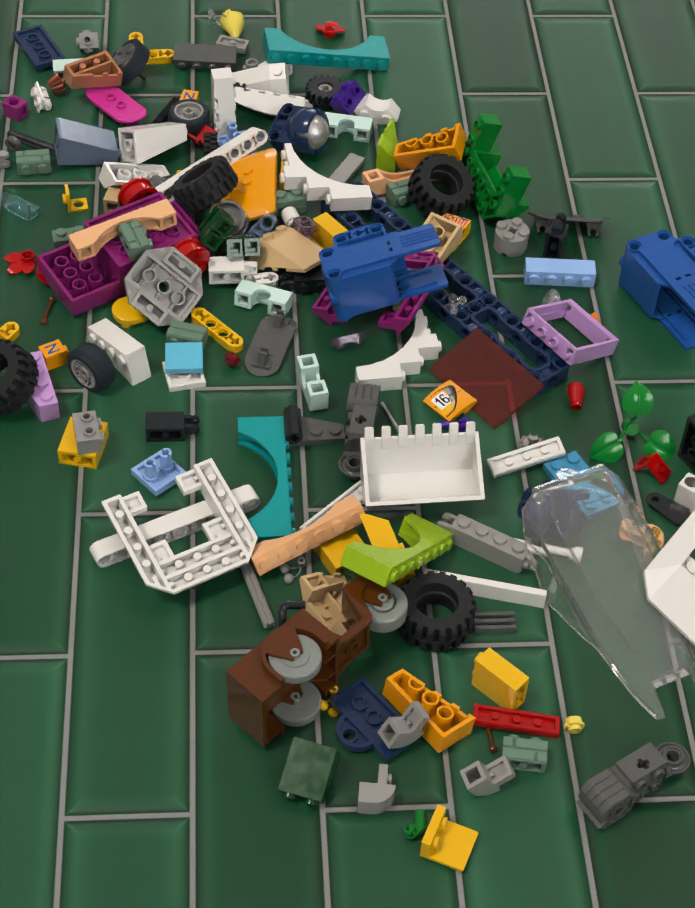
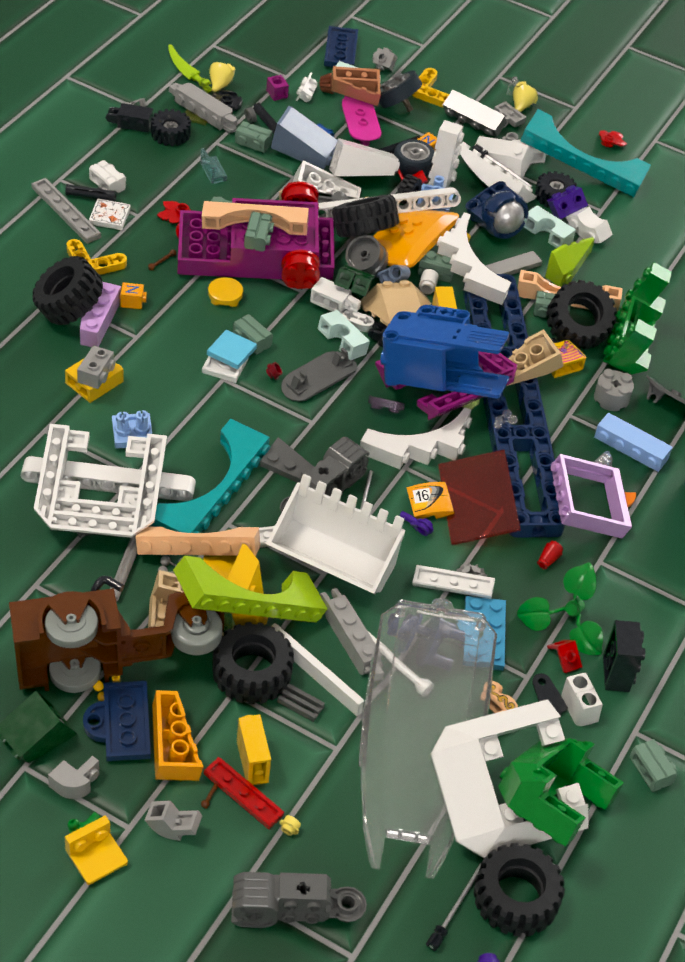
camera: 30 degrees right, 0 degrees up
(70, 202) = (255, 184): yellow bracket -> none
(91, 367) = (148, 319): black wheel -> none
(124, 351) = (186, 318): white wedge -> none
(170, 426) = (173, 398): black hinge -> none
(181, 281) = (242, 271): light grey piece -> none
(213, 332) = (284, 341): yellow beam -> none
(215, 228) = (341, 254): dark green hips -> none
(293, 424) = (271, 447): black axle -> none
(304, 225) = (425, 290): plate -> none
(313, 388) = (320, 426): light aqua arch -> none
(404, 729) = (134, 740): light grey brick -> none
(448, 141) = (613, 278): light orange wedge -> none
(525, 753) = (224, 822): sand green brick -> none
(556, 237) = (651, 410): black hinge -> none

